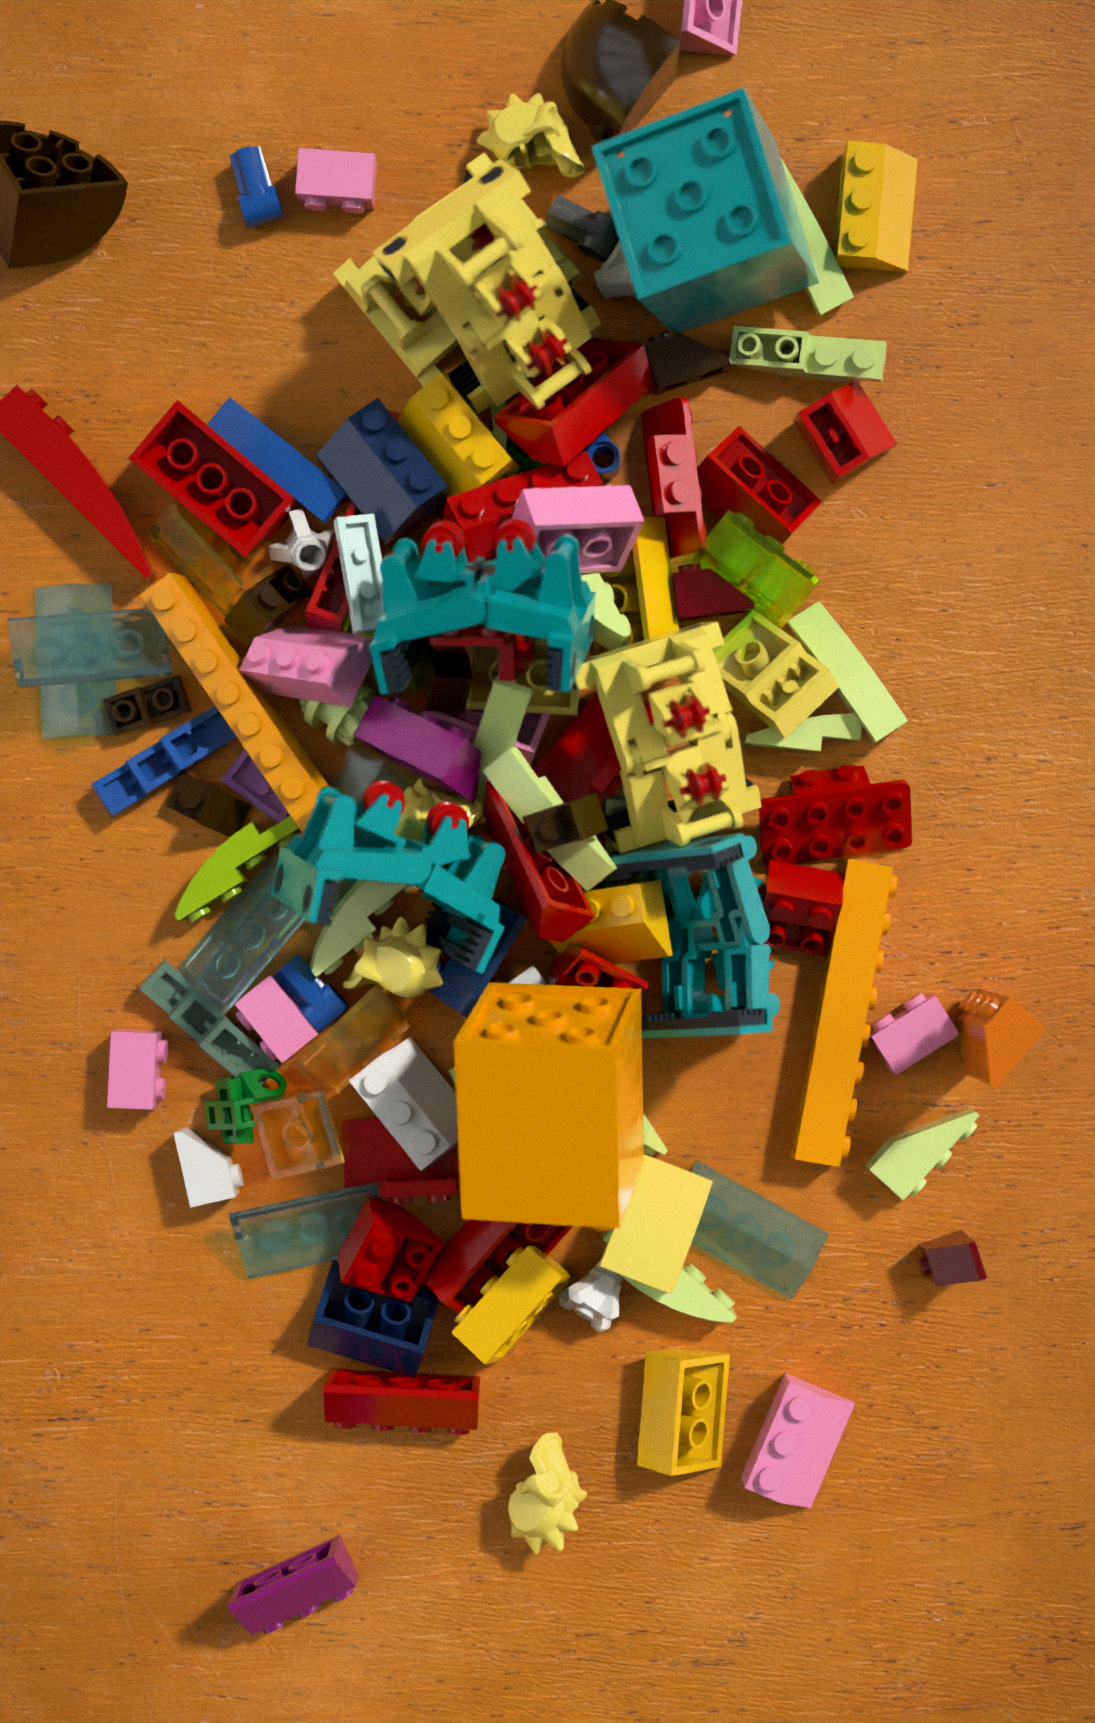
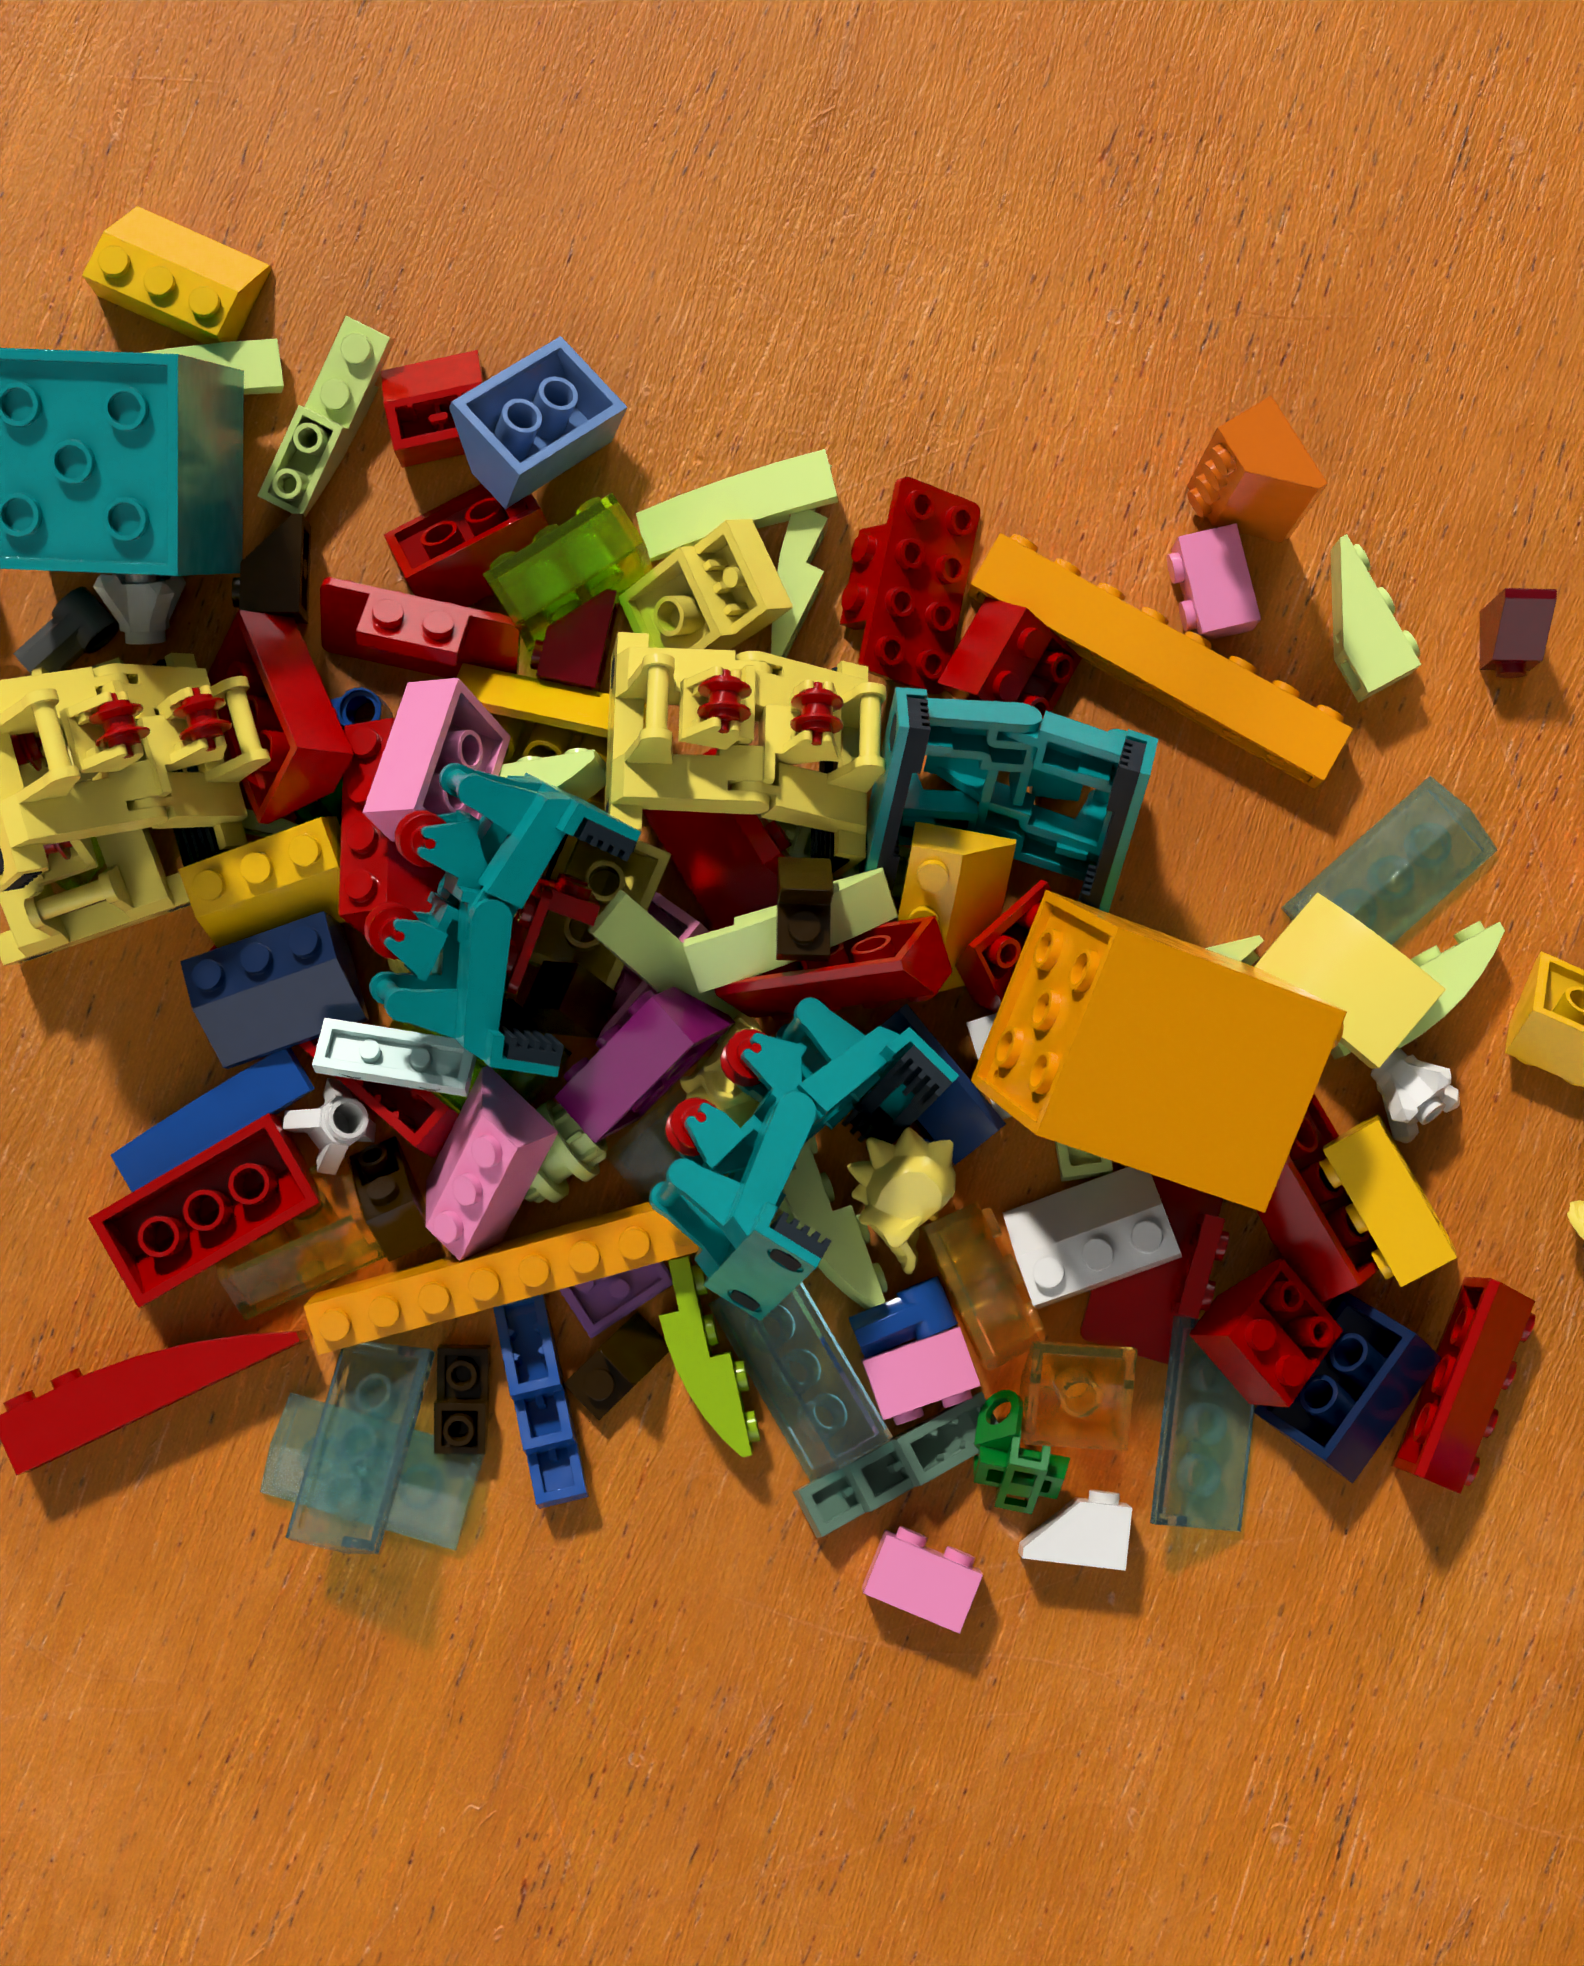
camera: 70 degrees left, 5 degrees down
(855, 505) = (535, 421): none -> medium blue slope

